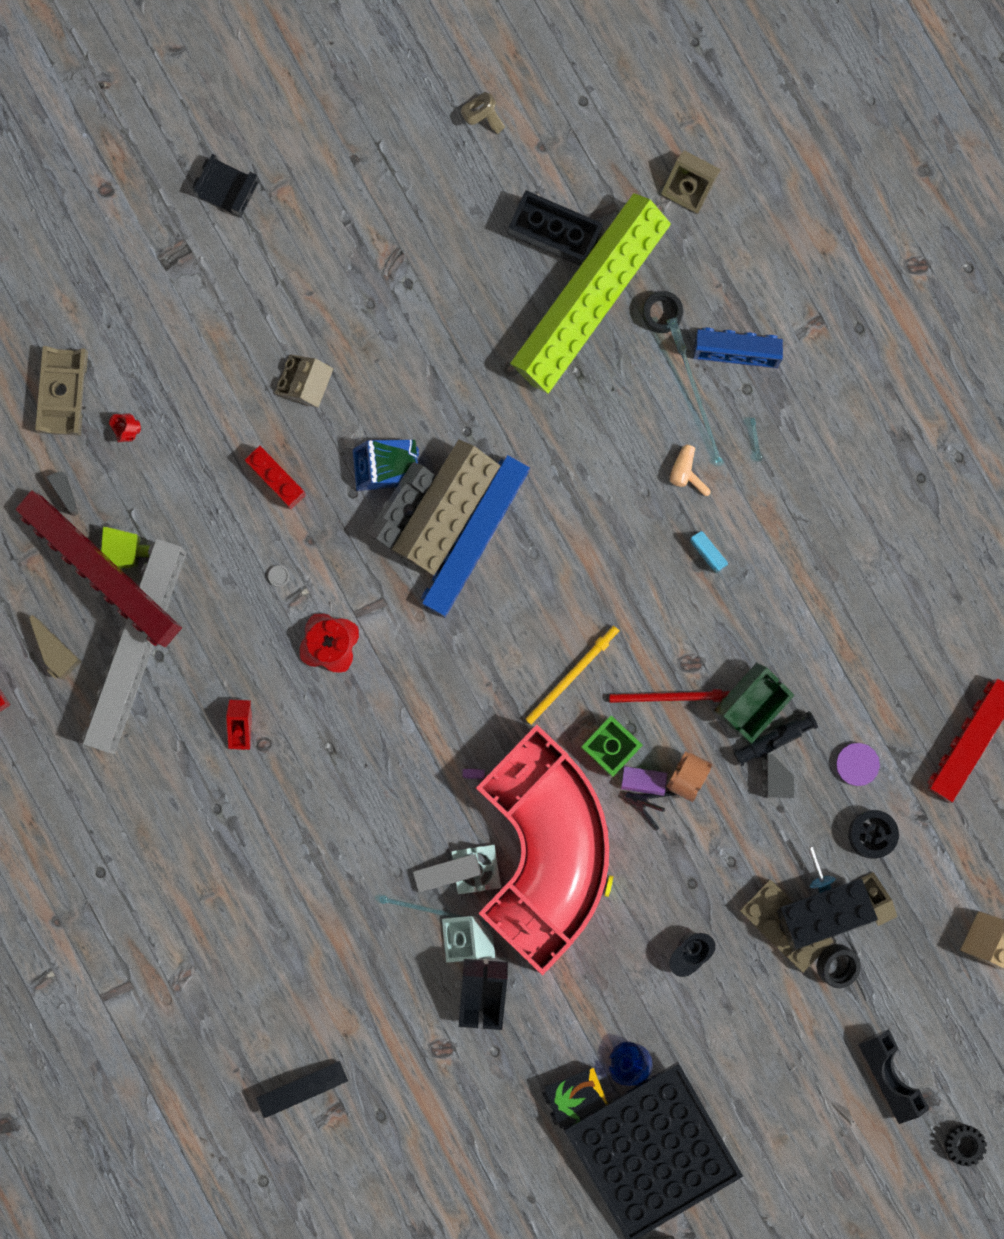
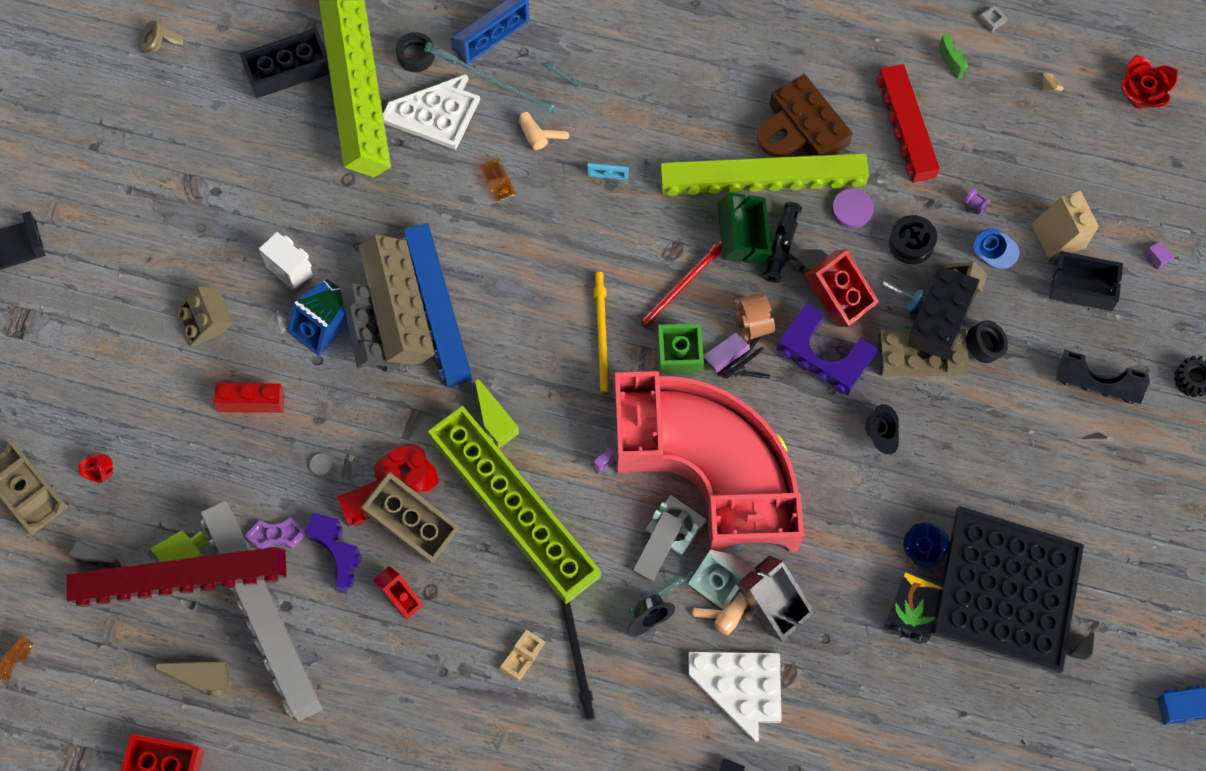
camera: 50 degrees left, 15 degrees down
(207, 604) = (285, 533): none -> medium lavender tile
(228, 665) = (326, 531): none -> dark purple arch
(278, 636) = (353, 500): none -> red brick
(278, 854) = (522, 656): none -> tan slope
(293, 924) = (585, 694): none -> black bar
(294, 683) = (409, 518): none -> dark tan brick
(377, 742) = (514, 505): none -> lime brick
(391, 912) = (649, 613): none -> black piece
(398, 397) = (286, 261): none -> white brick
(403, 1025) = (741, 685): none -> white wing
(428, 666) = (496, 421): none -> lime slope
(441, 970) = (725, 619): none -> light nougat piece
(618, 479) = (497, 180): none -> clear orange slope
(627, 378) = (435, 113): none -> white wing
(699, 827) = (840, 374): none -> dark purple arch
(773, 821) = (841, 288): none -> red brick
(819, 672) = (764, 174): none -> lime brick
(894, 661) = (805, 120): none -> reddish brown brick
(927, 903) = (996, 248): none -> blue piece
(955, 853) = (977, 201): none -> medium lavender bush
(964, 996) = (1086, 281): none -> black piece

